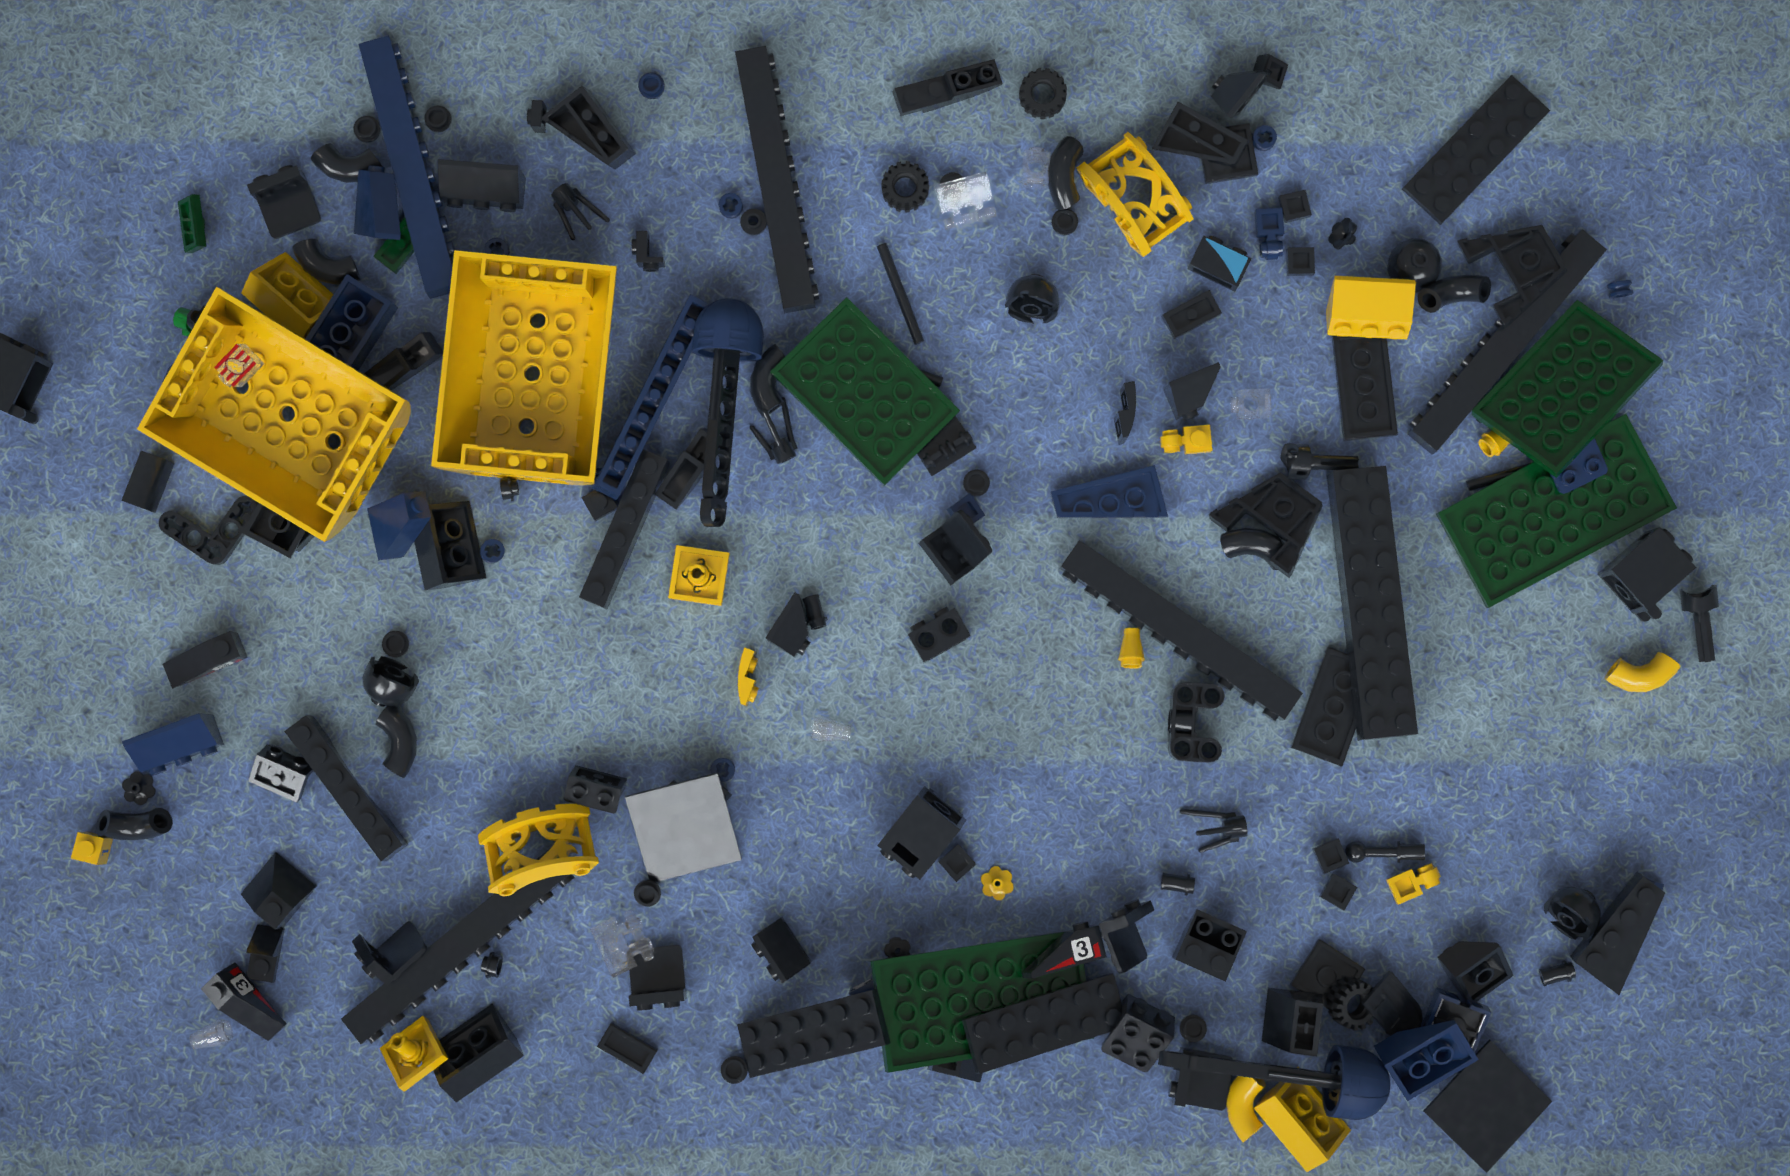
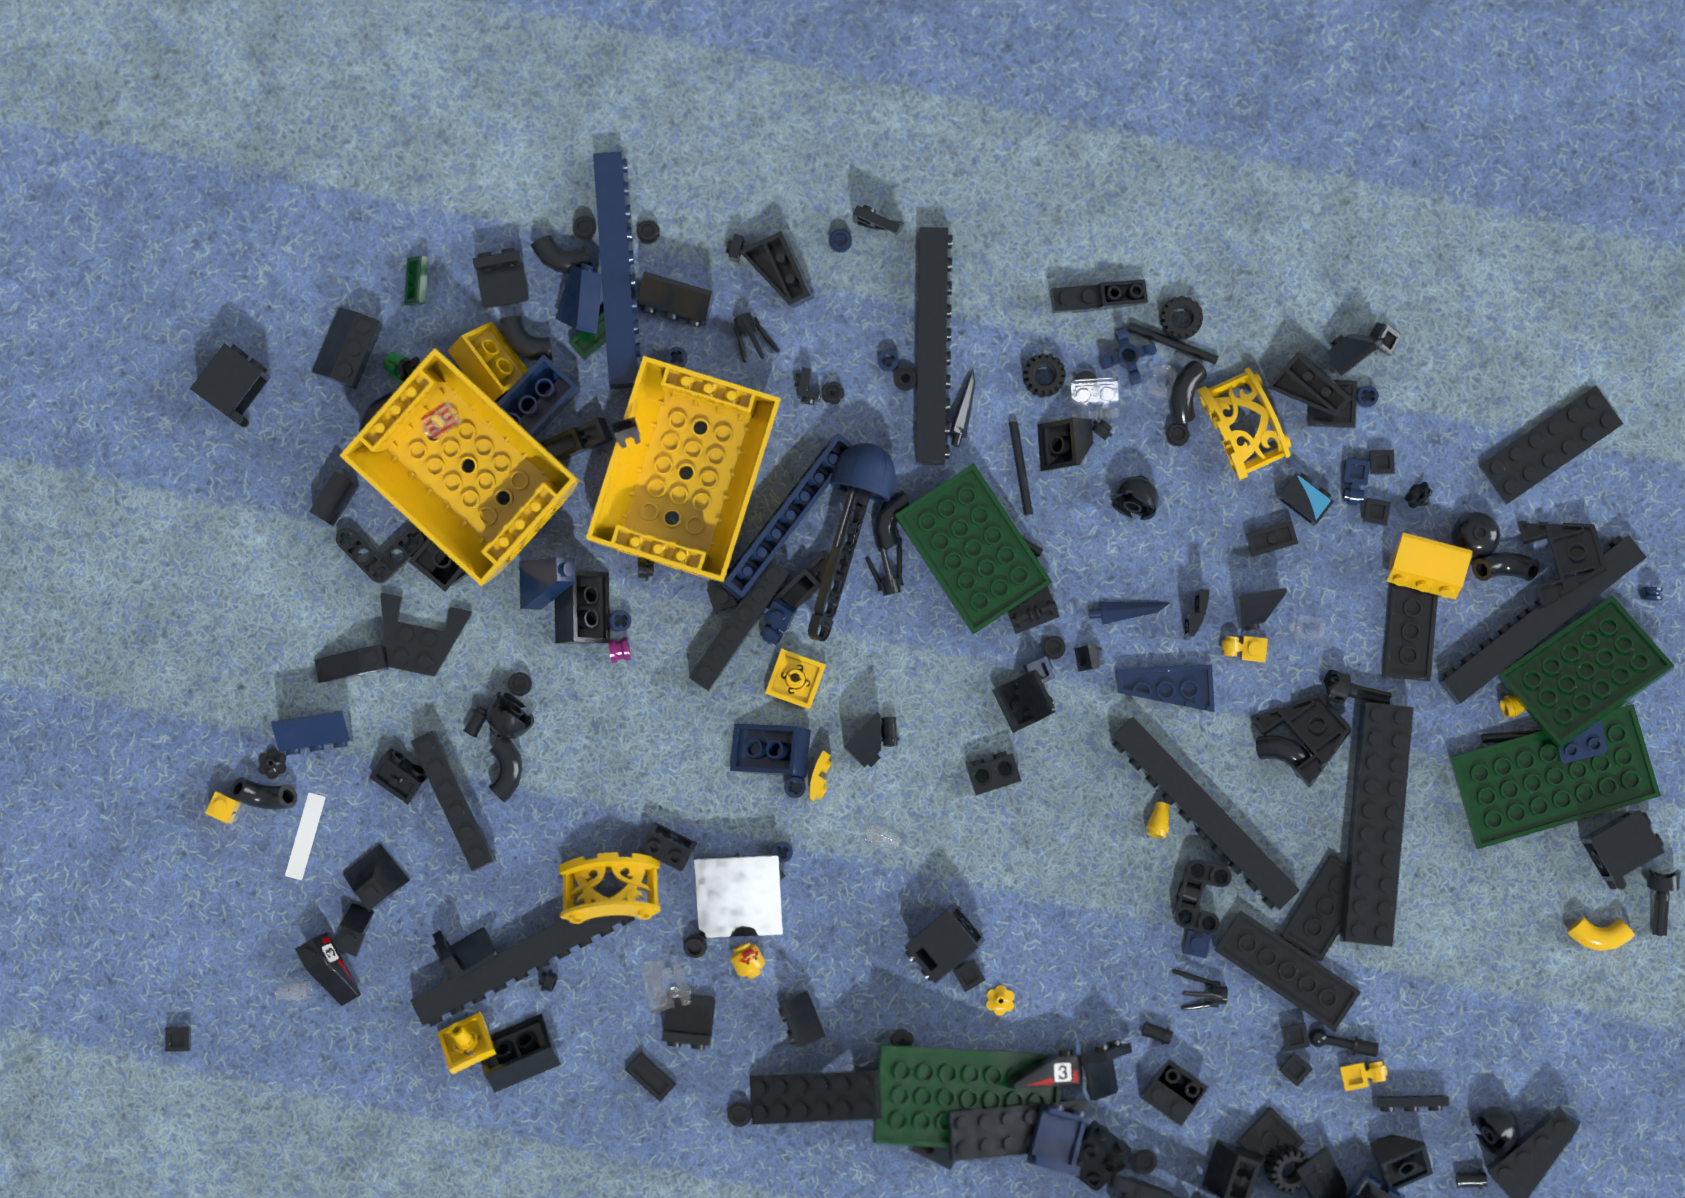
camera: 10 degrees right, 0 degrees up
(92, 1115) = (177, 1039): none -> black plate
(132, 312) = (347, 347): none -> black slope
(191, 861) = (305, 836): none -> white sticker
(273, 626) = (418, 647): none -> black wing
(354, 695) = (476, 721): none -> black pin
(449, 335) = (626, 429): none -> black tile
(497, 583) = (619, 650): none -> magenta wheel
(668, 510) = (780, 617): none -> dark blue plate
(671, 248) = (832, 399): none -> black plate
(678, 54) = (867, 217): none -> black plate
(687, 659) = (770, 749): none -> dark blue slope
(708, 897) = (747, 960): none -> yellow head
(724, 687) = (792, 794): none -> dark blue bush
(824, 251) = (961, 420): none -> black bar
(942, 255) = (1064, 442): none -> black slope
(980, 153) = (1144, 351): none -> dark blue pin
(981, 232) = (1102, 429): none -> black plate
(1016, 486) = (1087, 657): none -> black tile
(1037, 429) = (1118, 611): none -> dark blue bar
(1039, 123) = (1173, 343): none -> black bar
(1091, 1024) = (1057, 1139): none -> dark blue panel
(1200, 776) = (1196, 944): none -> dark blue plate
(1307, 785) = (1287, 971): none -> black plate
(1473, 902) = (1411, 1103): none -> black plate

